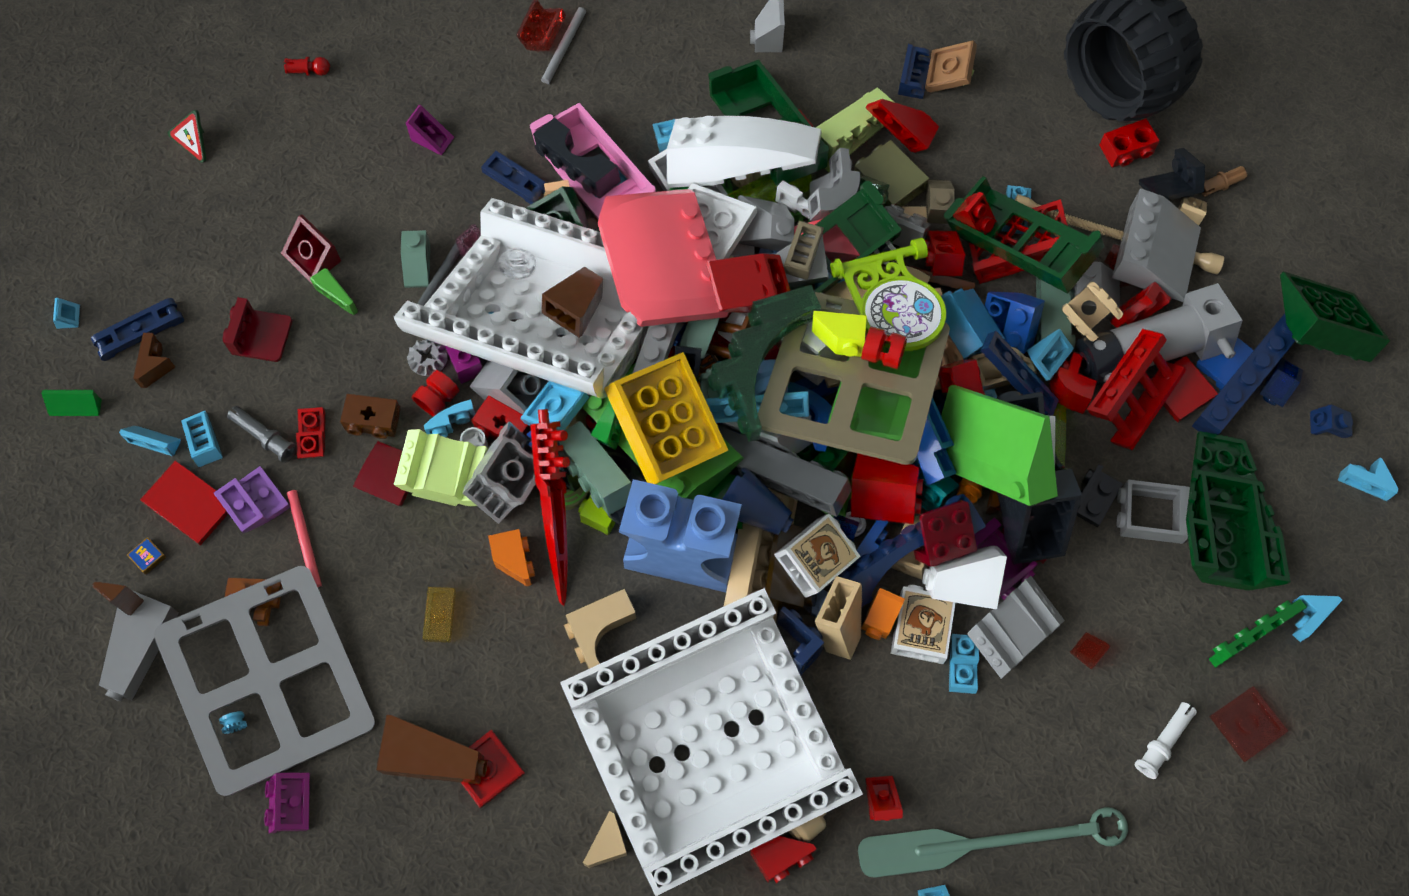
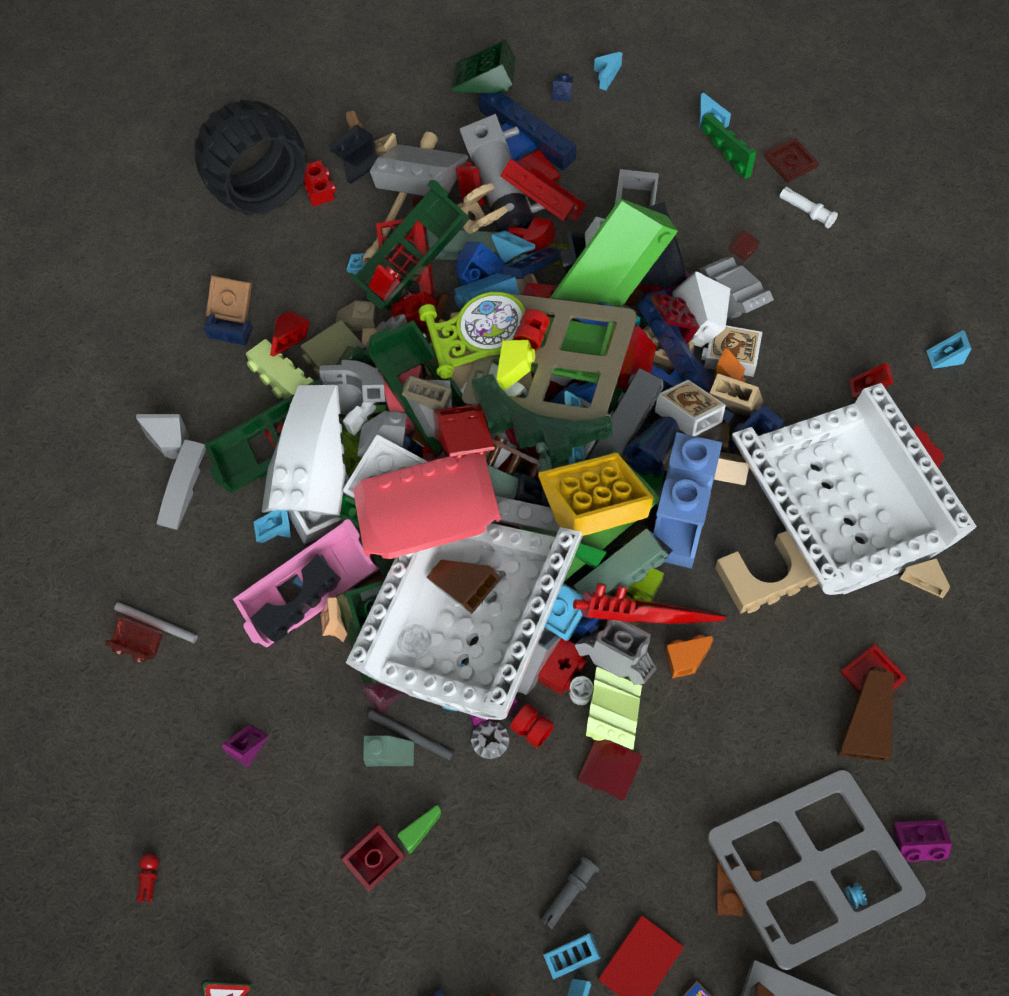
camera: 85 degrees left, 5 degrees down
(252, 500) = (639, 896): medium lavender slope -> none
(256, 332) = (461, 903): dark red bracket -> none
(303, 535) = (668, 847): coral bar -> none
(311, 433) = (567, 845): red slope -> none
(359, 408) = (546, 799): reddish brown brick -> none
(439, 614) = (743, 716): clear yellow plate -> none
(441, 423) = (562, 720): medium azure slope -> none
(513, 177) = (303, 663): dark blue plate -> none
(715, 46) = (180, 484): none -> light grey slope
(937, 848) = (900, 353): sand green piece -> none
(963, 664) = (769, 327): medium azure slope -> none
(1229, 520) = (653, 148): dark green wedge -> none
(1281, 383) = (537, 106): clear blue slope -> none

